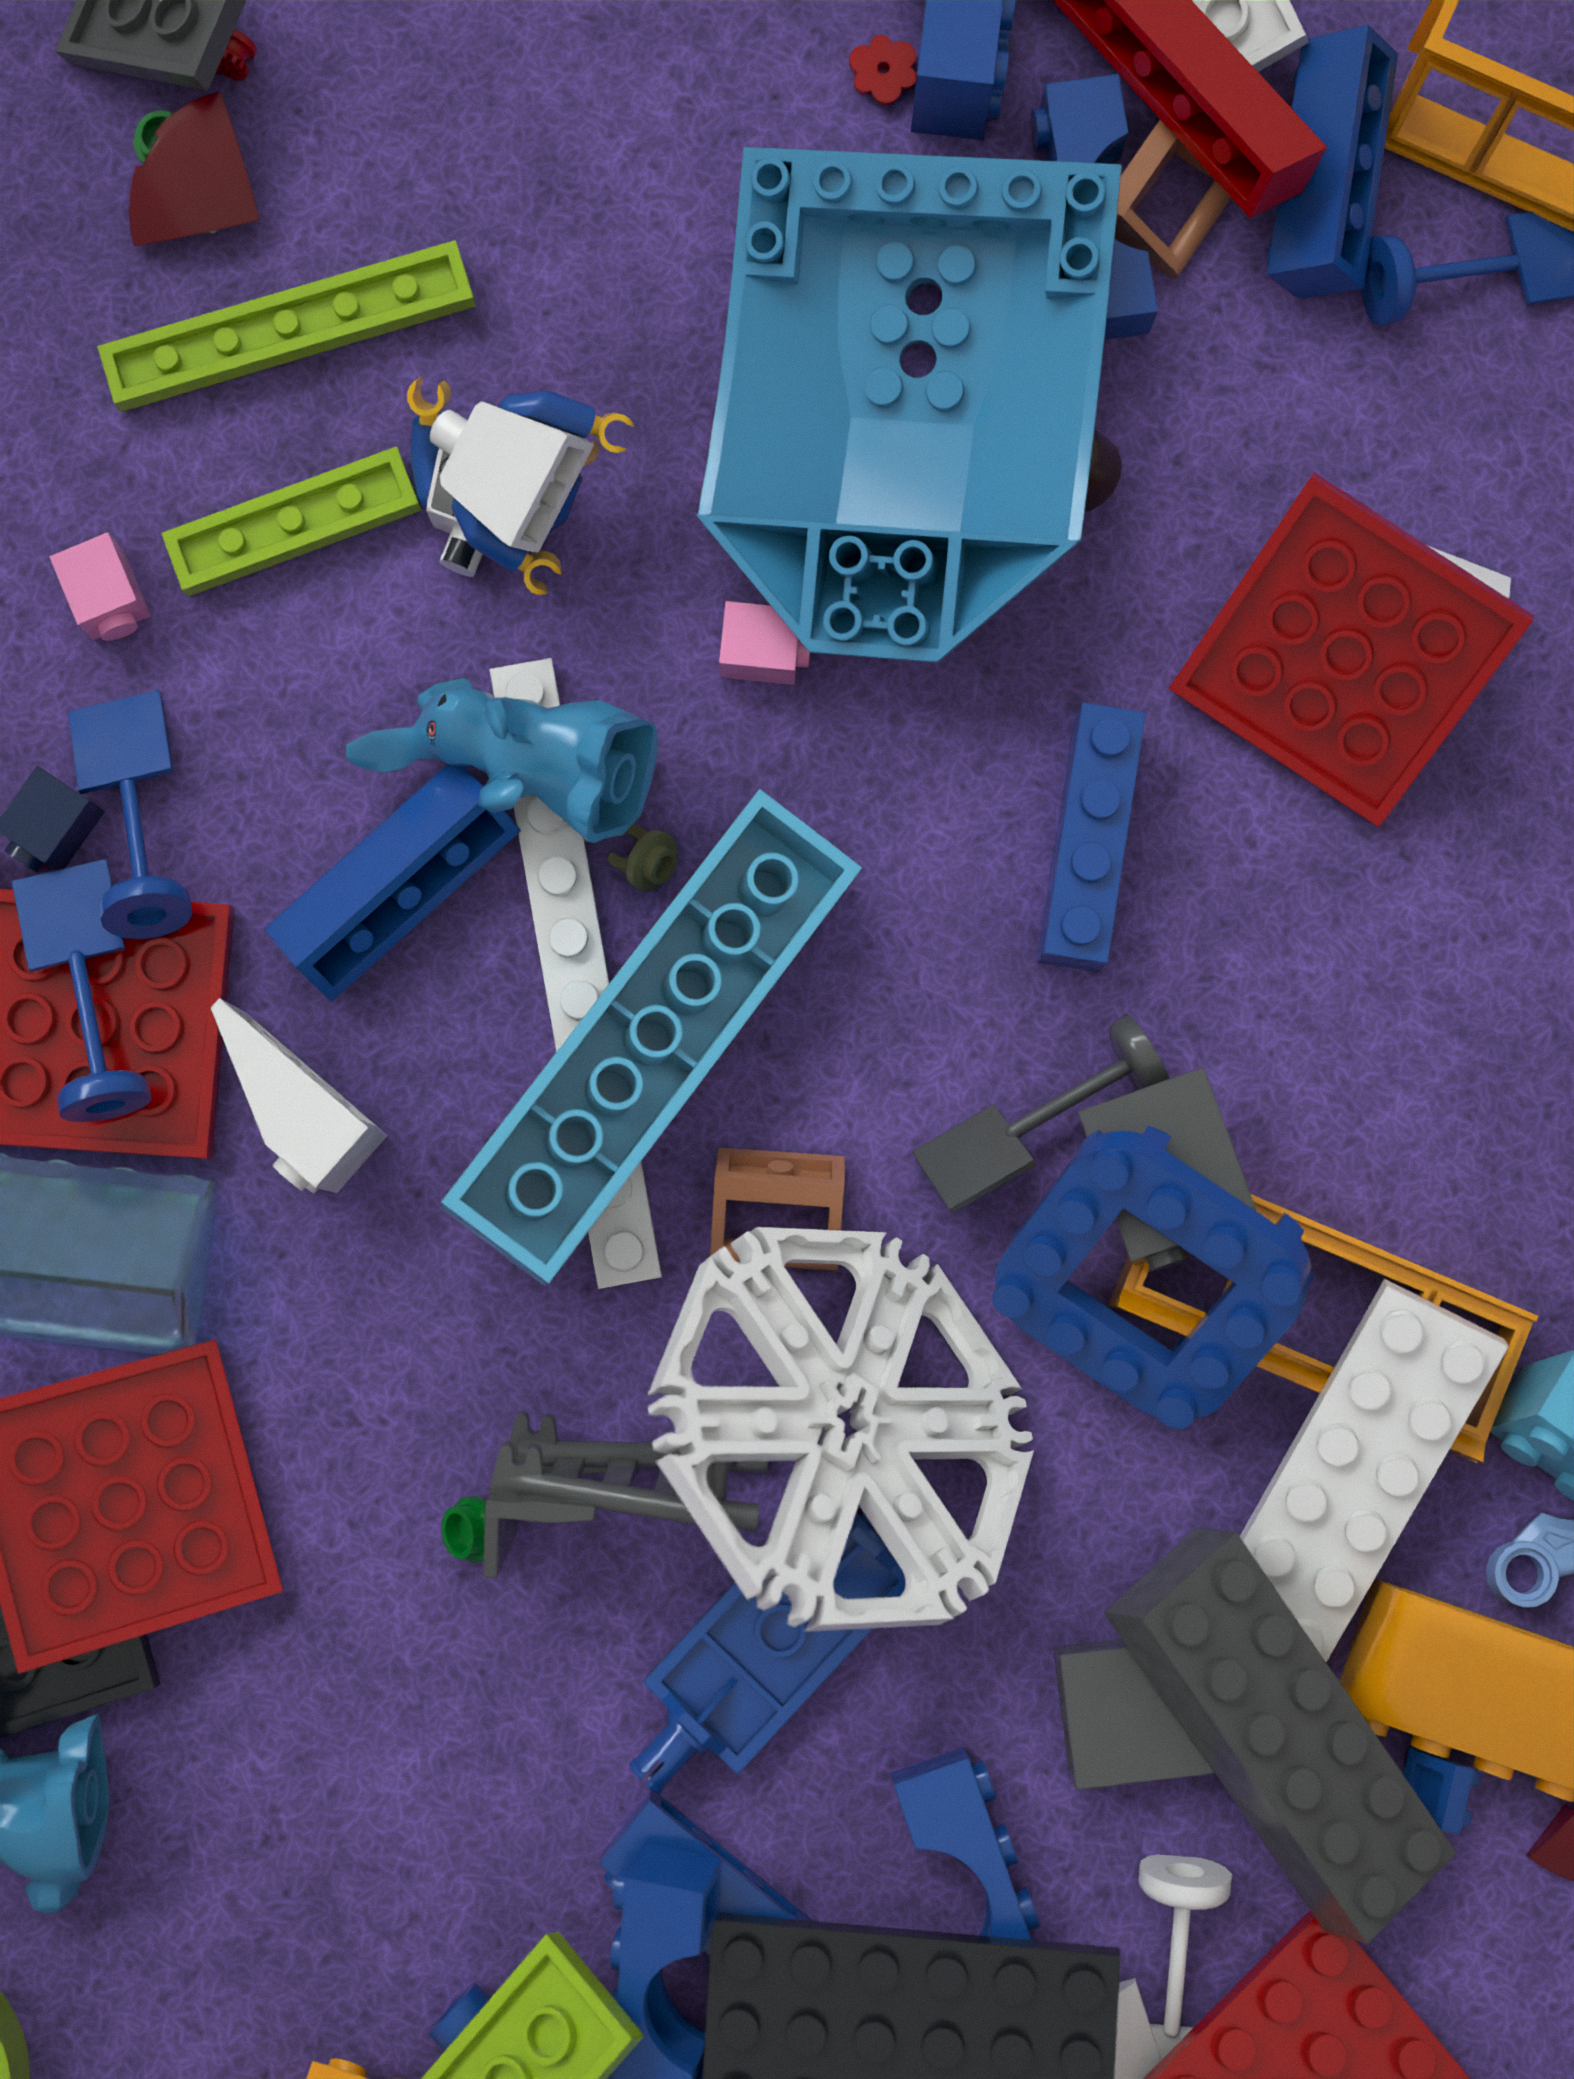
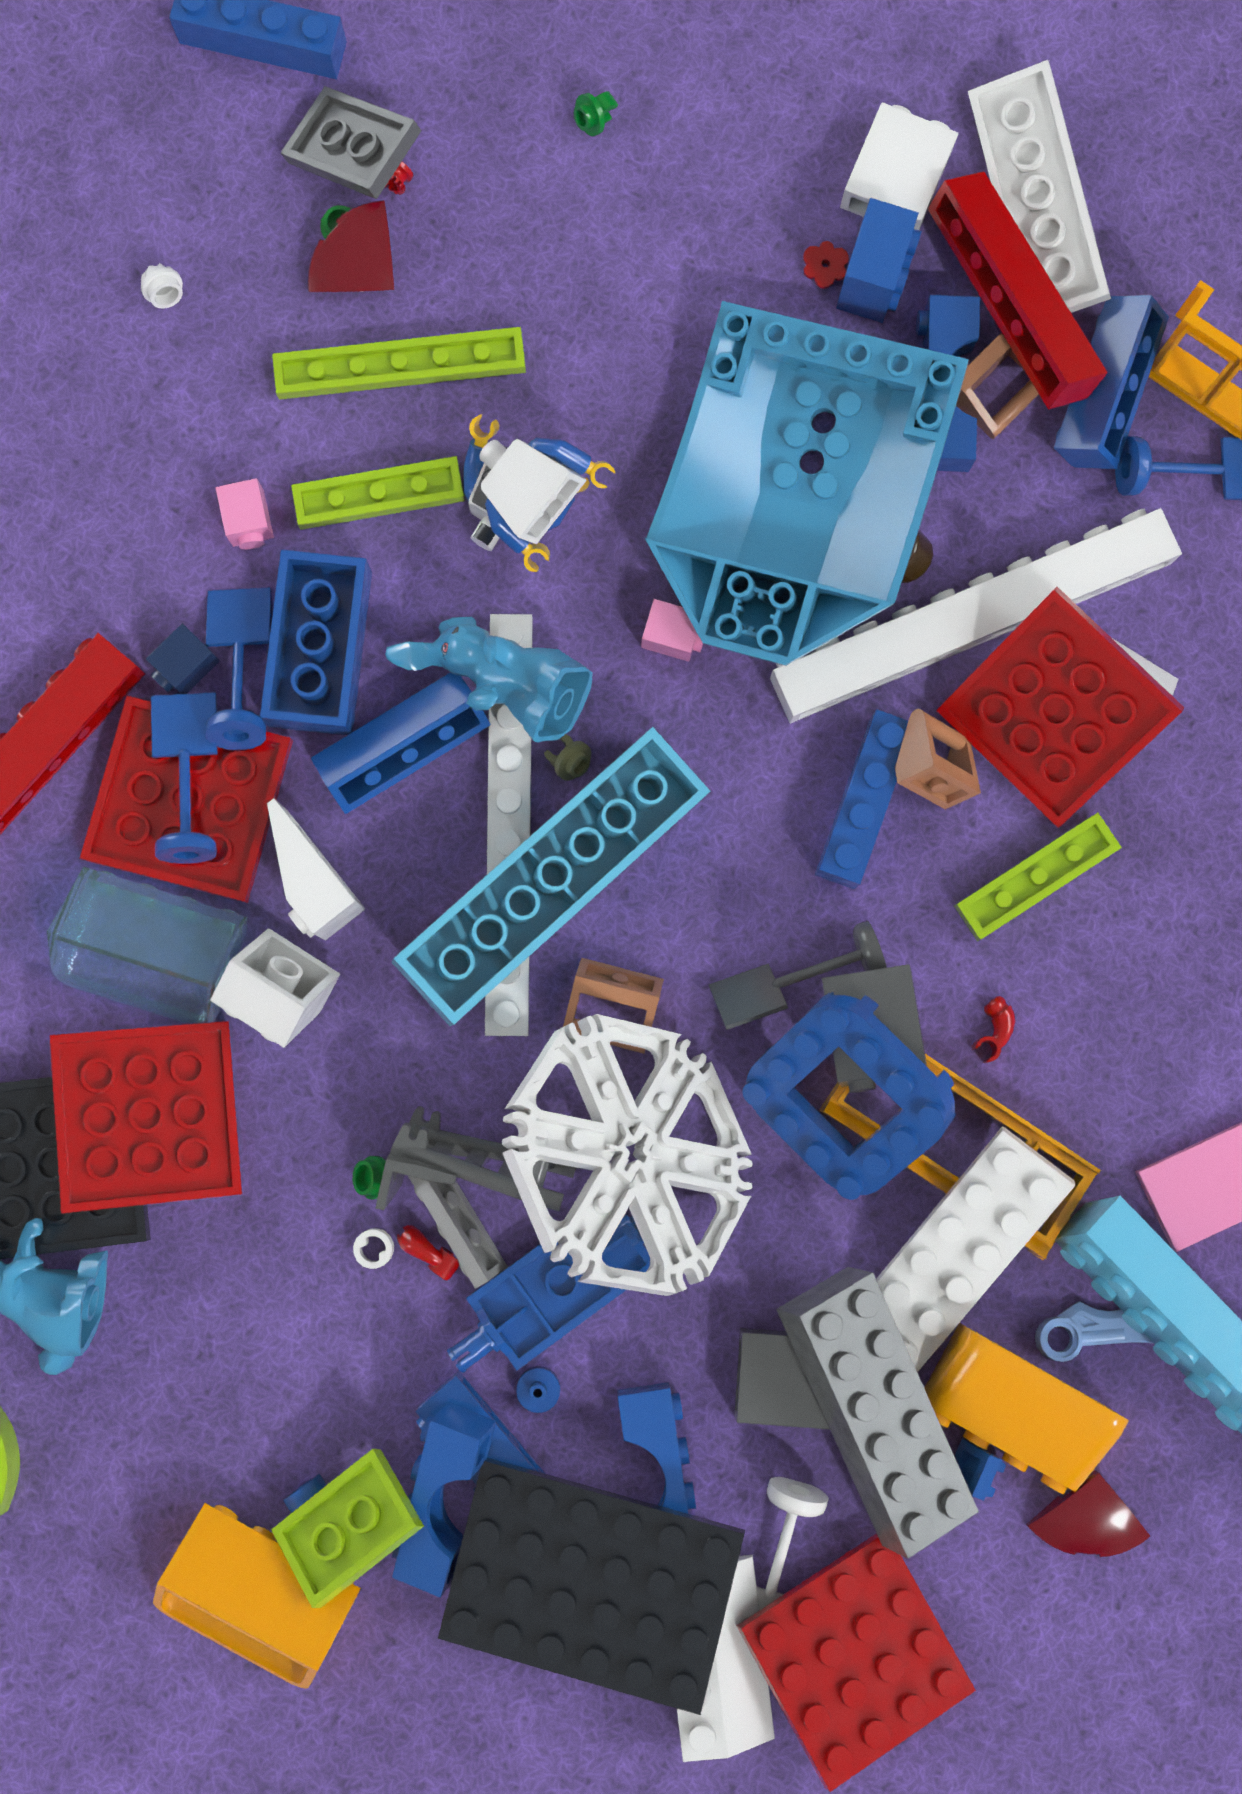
camera: 10 degrees right, 0 degrees up
(241, 757) = (316, 642): none -> blue brick
(274, 1277) = (274, 987): none -> white brick
(475, 1625) = (384, 1256): none -> white bush
(556, 1617) = (417, 1245): none -> red arm
(619, 1583) = (461, 1229): none -> light grey plate
(770, 1780) = (542, 1379): none -> blue tile
(1174, 782) = (929, 774): none -> nougat tile
(1195, 540) = (973, 615): none -> white brick
(1354, 1130) = (1003, 1023): none -> red arm
(1362, 903) = (1037, 876): none -> lime plate

